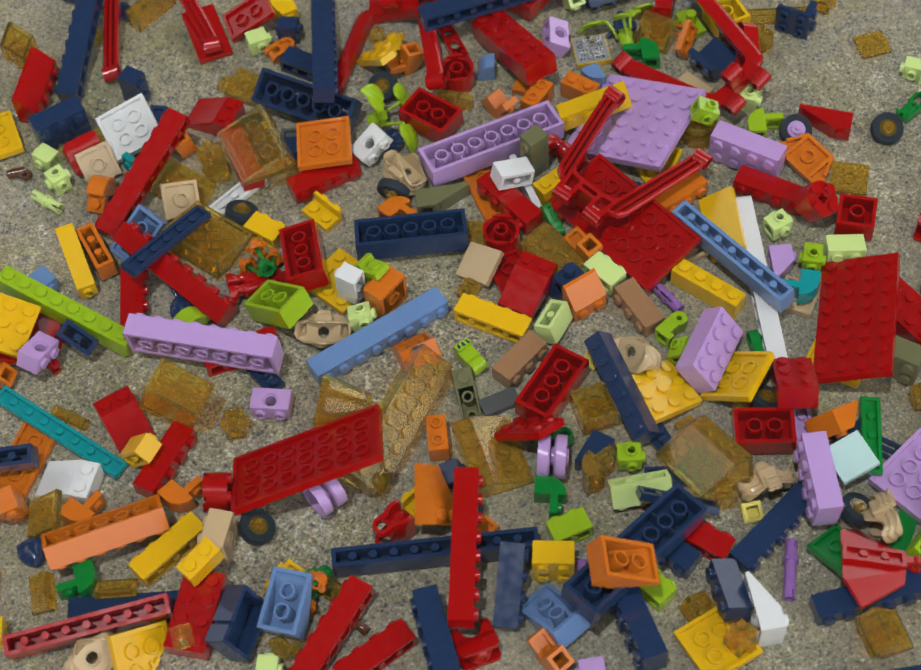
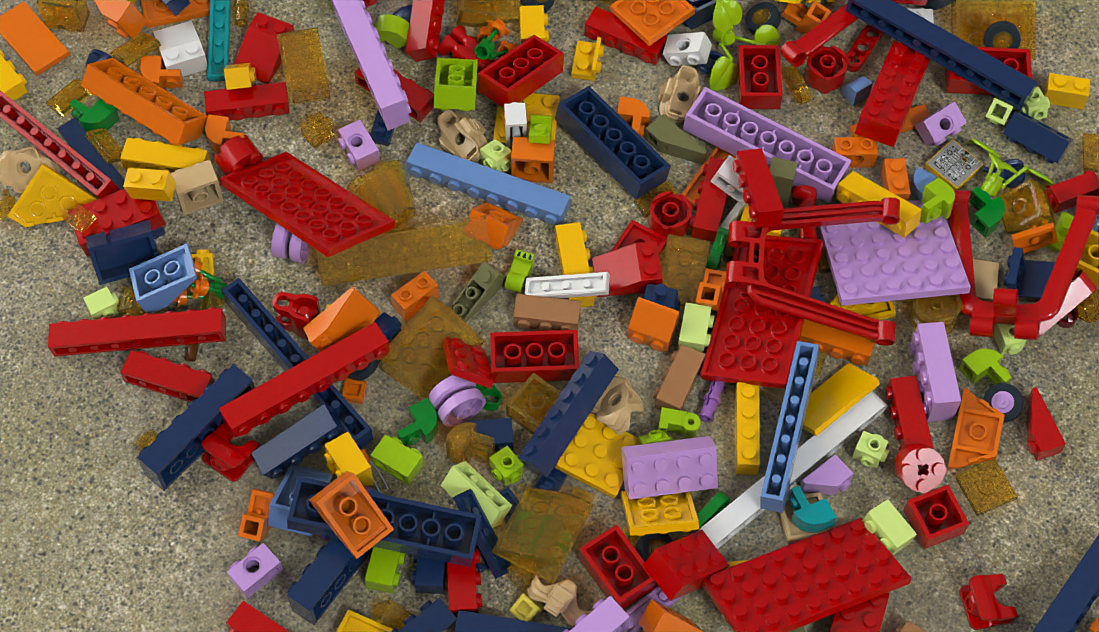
camera: 50 degrees right, 5 degrees up
(257, 527) = (229, 211): black wheel -> none
(390, 188) = (650, 97): black wheel -> none
(469, 287) = (594, 227): clear yellow tile -> none
(480, 263) = (624, 217): tan tile -> none
(498, 402) = (488, 322): dark grey tile -> none
(499, 105) = (820, 126): orange brick -> none
(512, 329) = (569, 285): none -> white tile
(540, 156) = (758, 187): none -> red brick
(553, 321) = (606, 316): yellowish green brick -> none
(618, 69) = (937, 200): none -> lime brick
(704, 110) = (940, 301): lime brick -> none
(812, 256) = (854, 503): lime brick -> none
(886, 128) = (1076, 487): black wheel -> none

